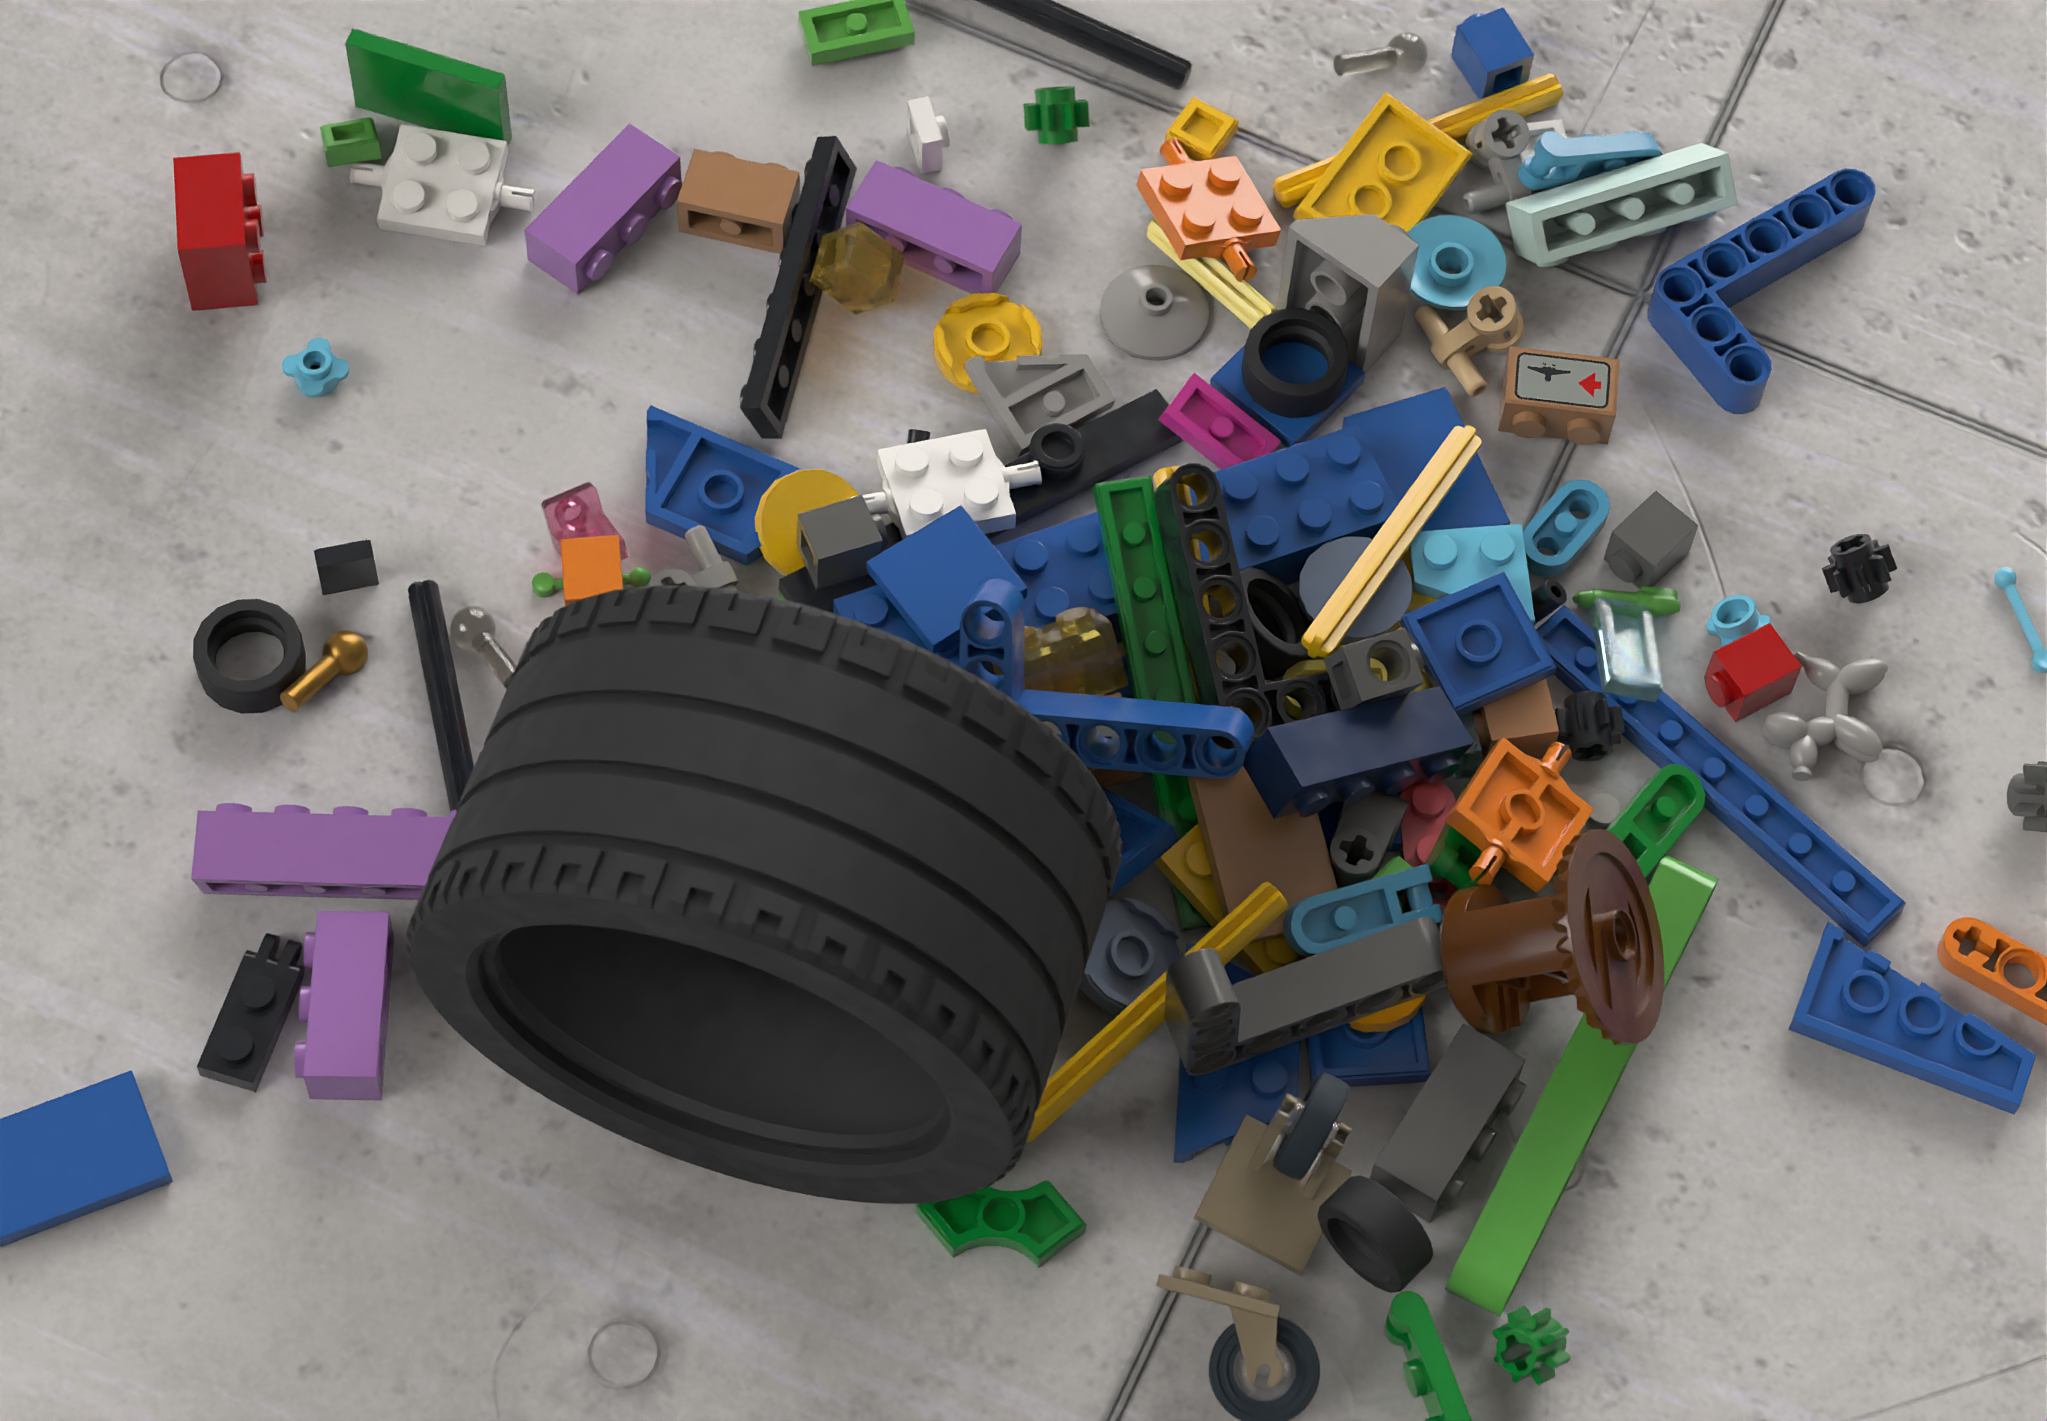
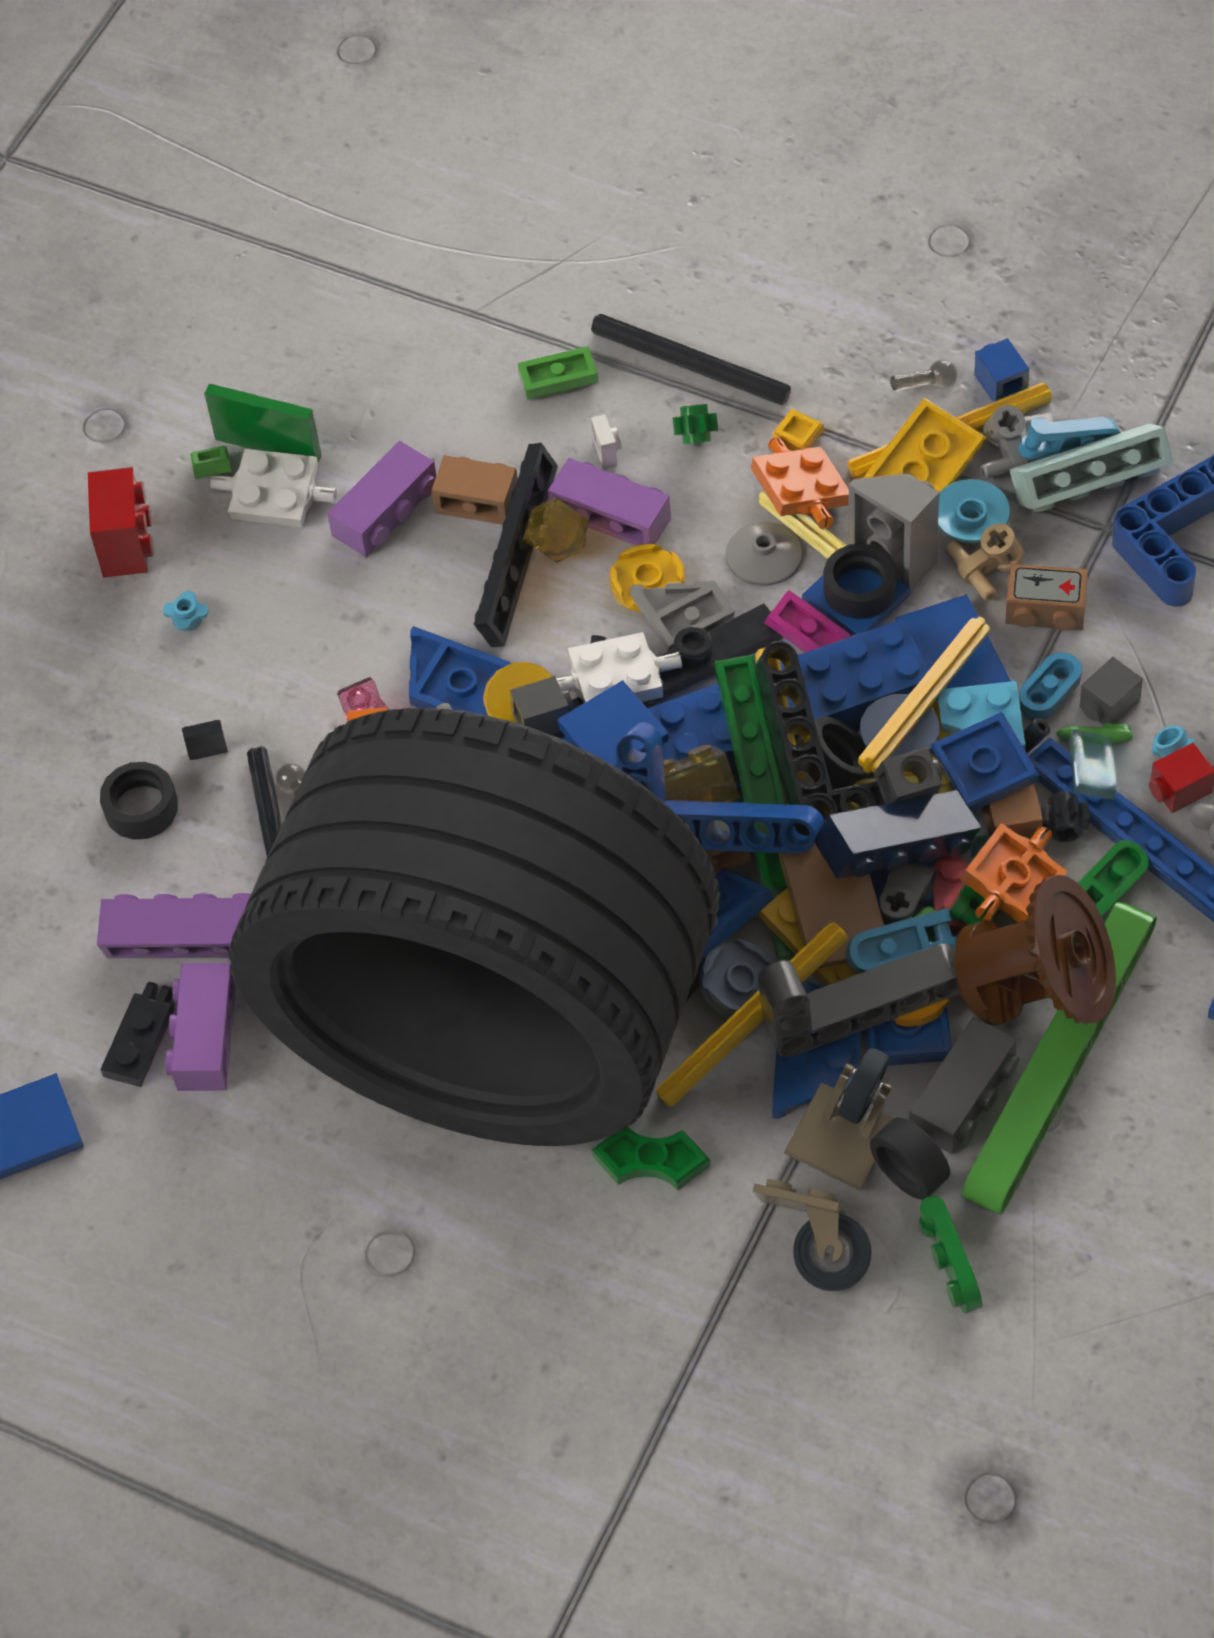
camera: 10 degrees right, 5 degrees down
(341, 654) = (202, 798): pearl gold bar -> none
(1531, 1345) = (1020, 1232): green gear -> none

